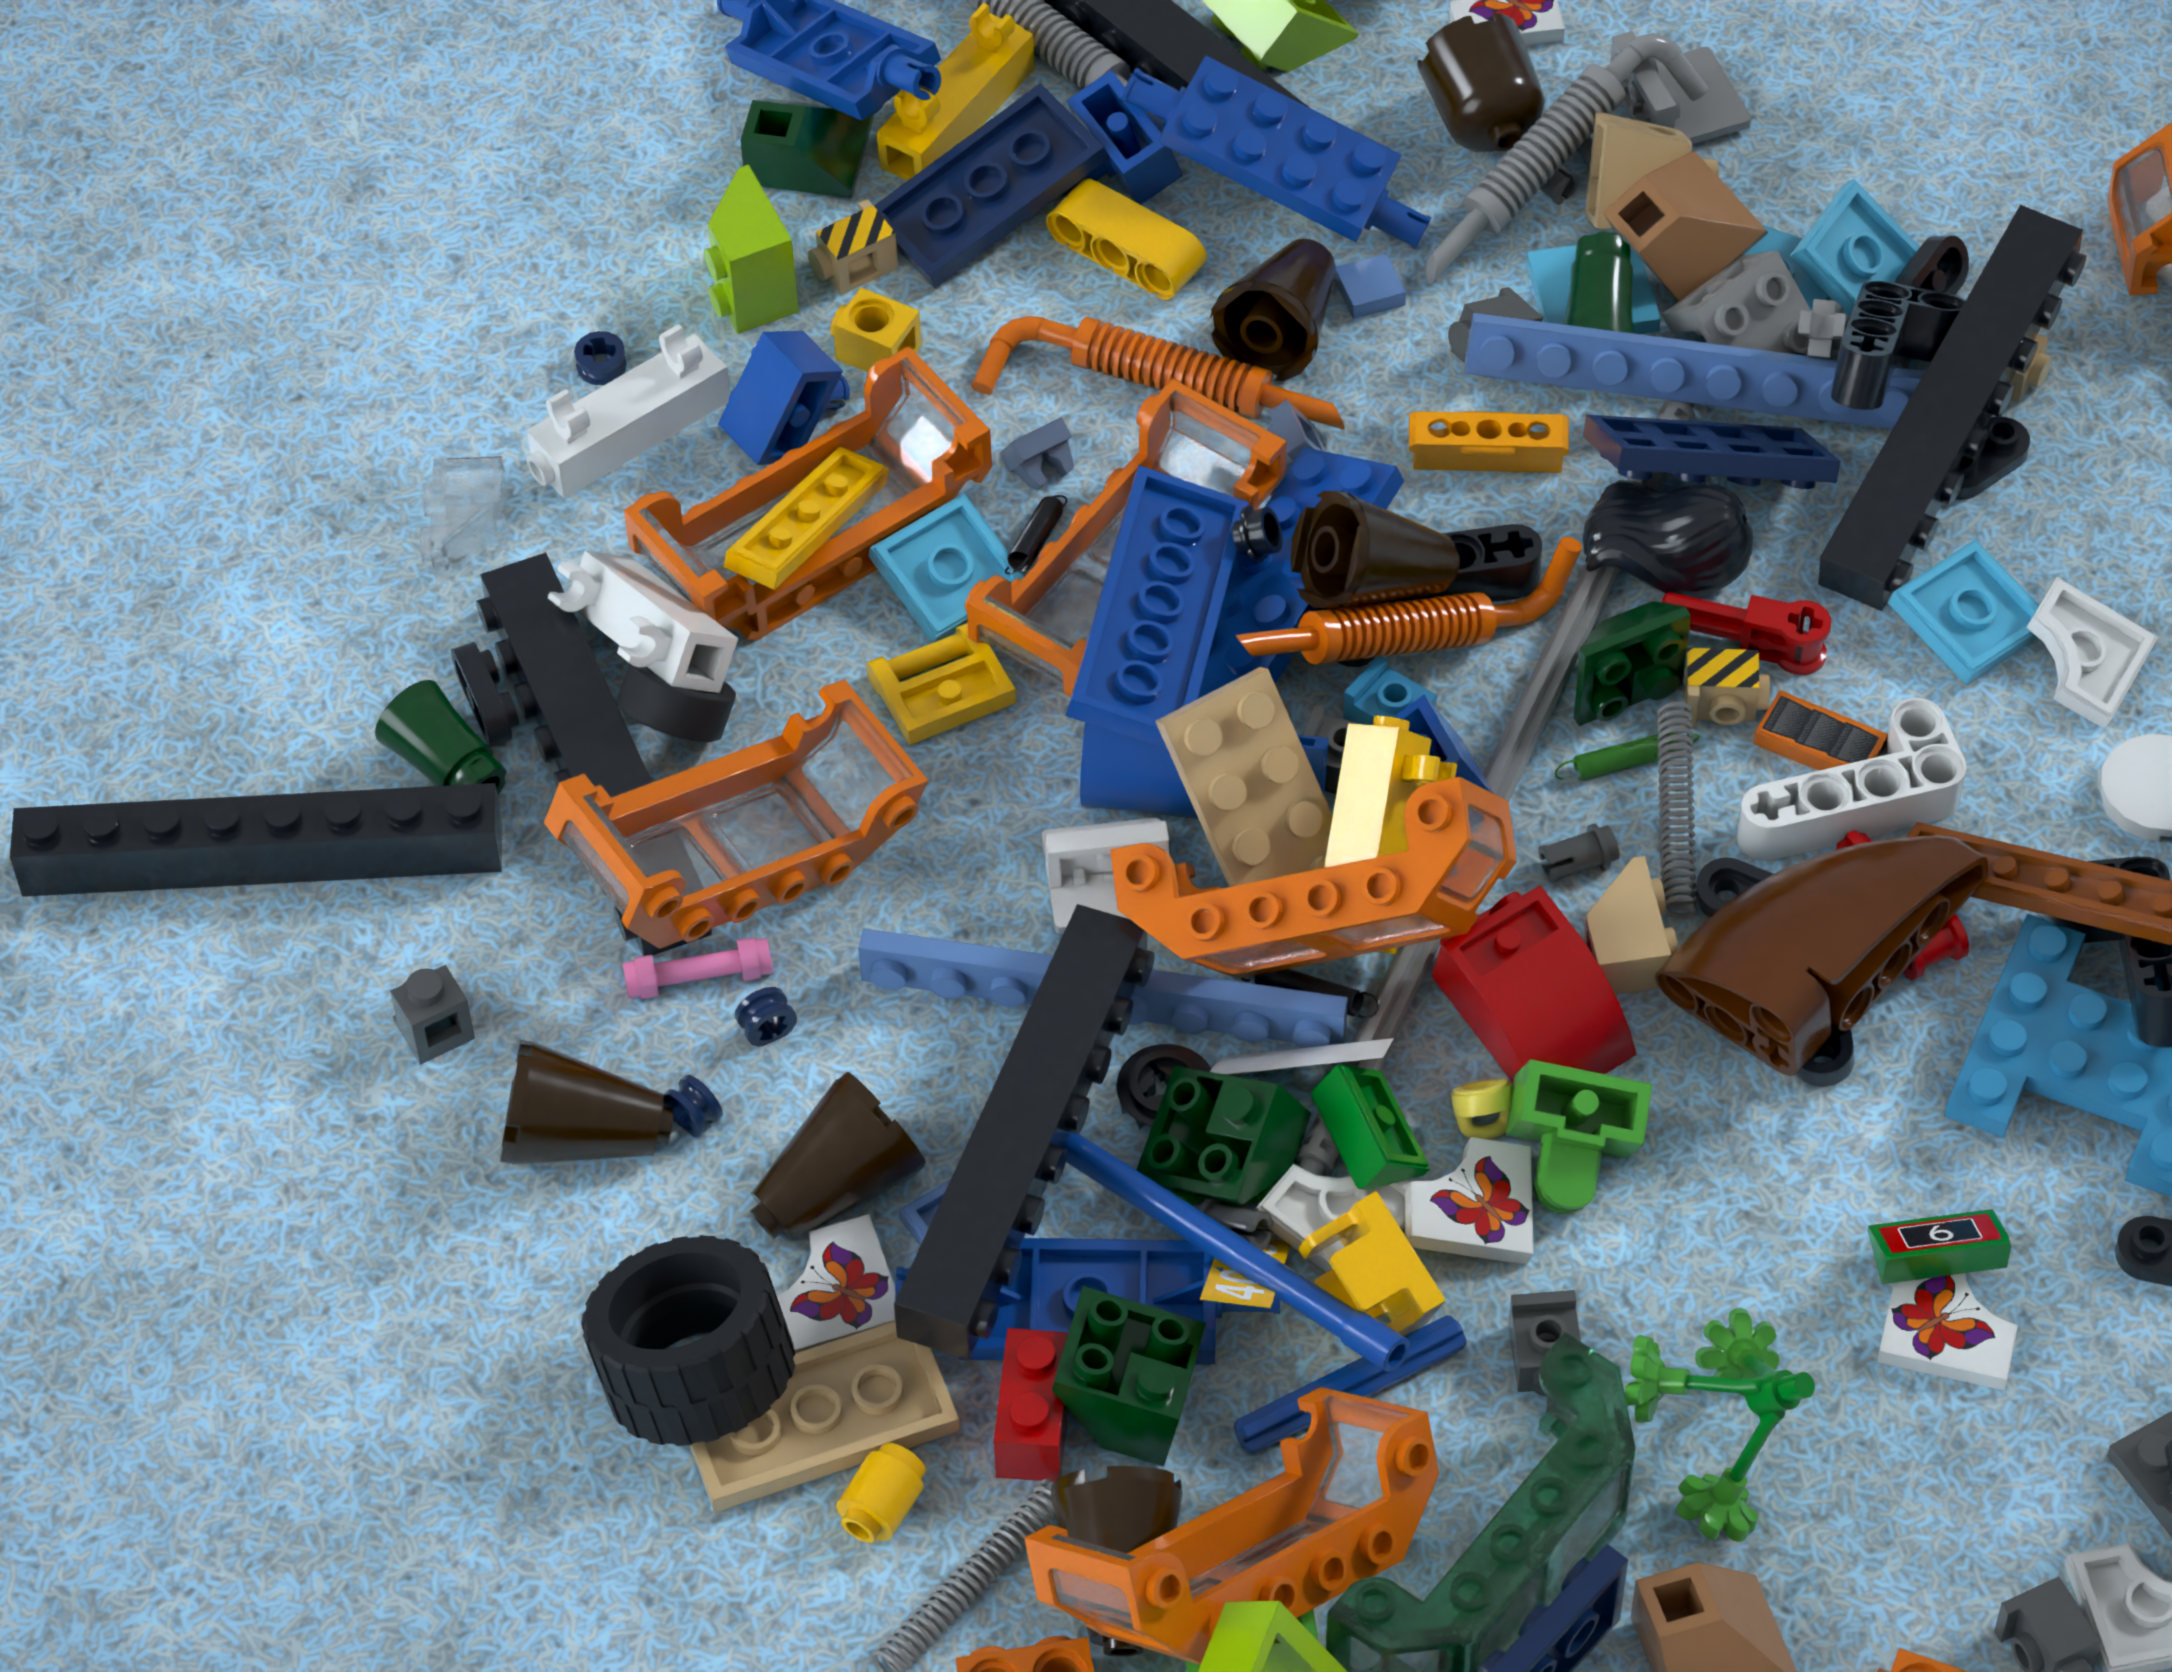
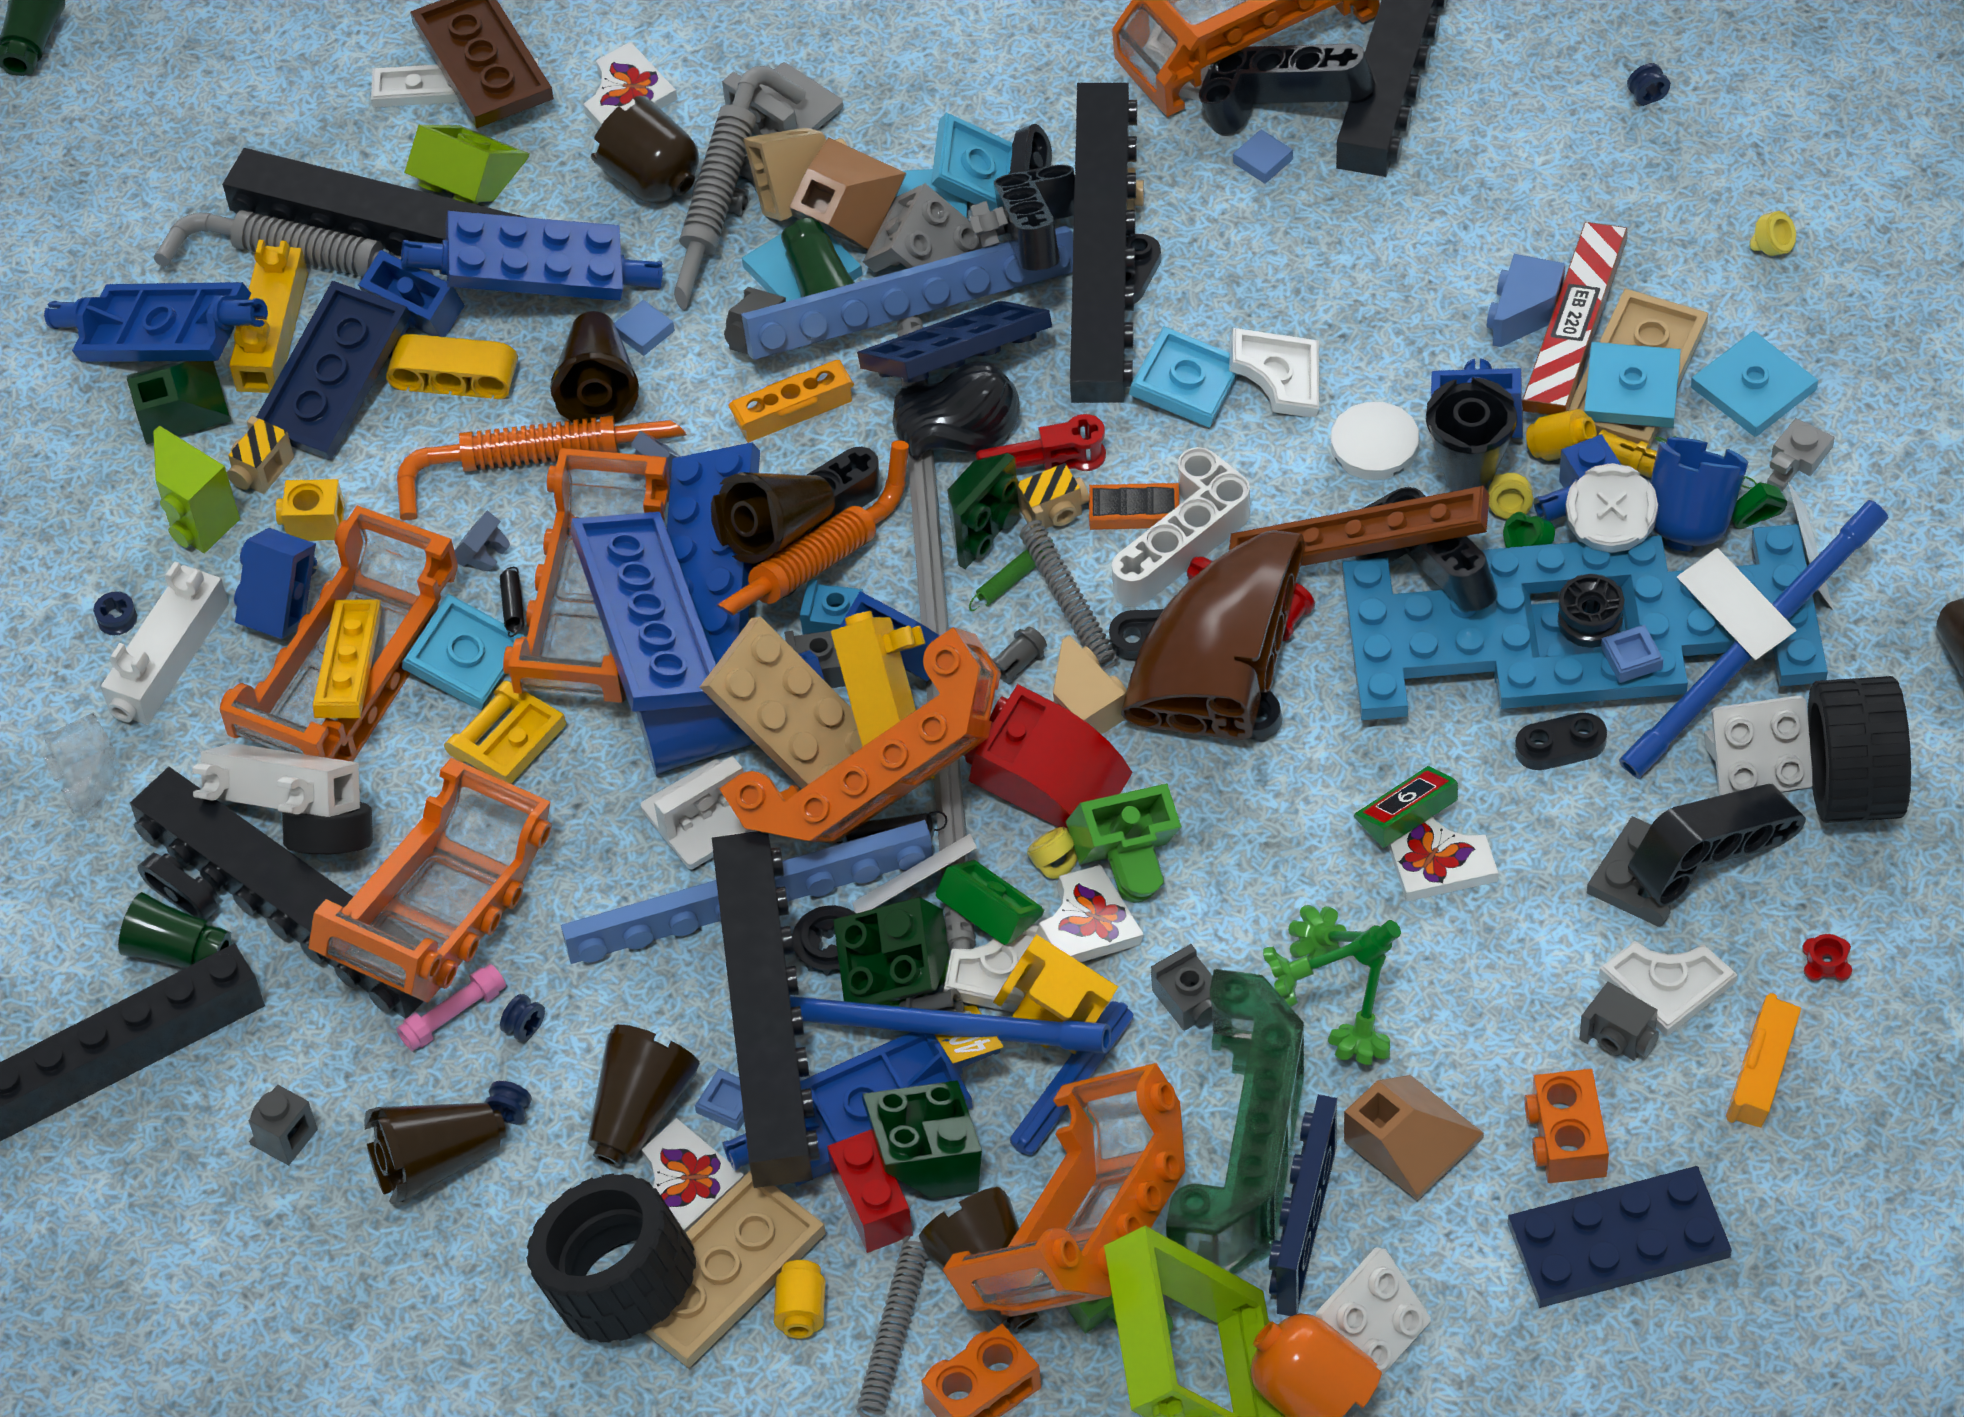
camera: 25 degrees left, 0 degrees up
(1257, 533) = (682, 530): black plate -> none

